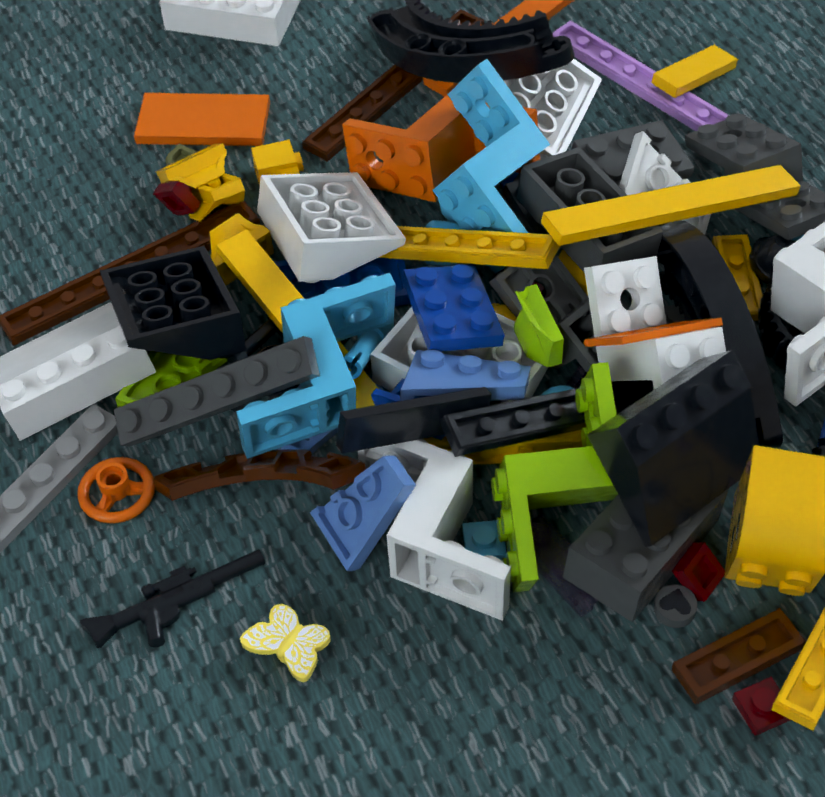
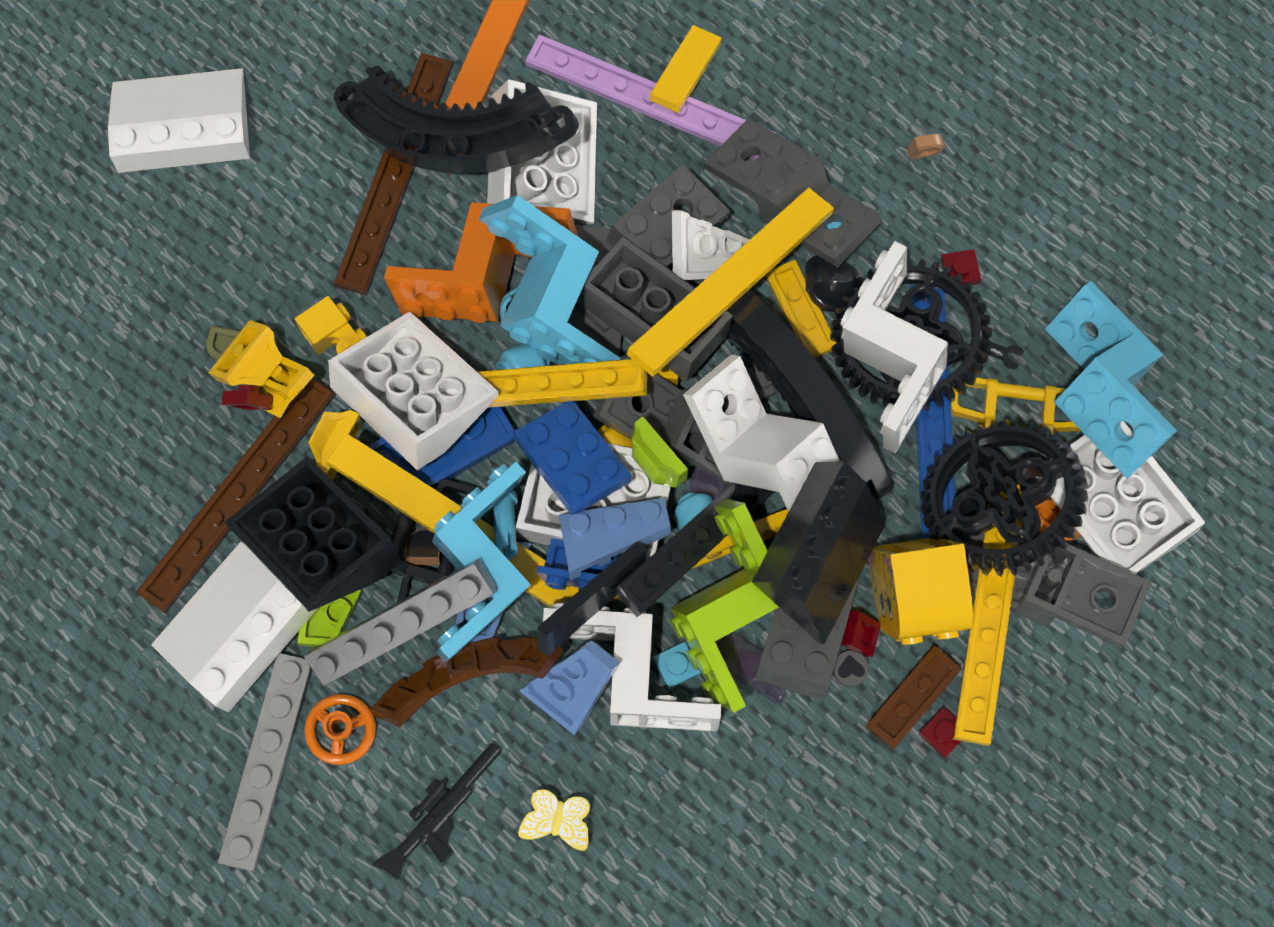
camera: 25 degrees left, 20 degrees up
(202, 119) = (218, 284): orange tile -> none
(653, 332) = (775, 443): orange window -> none

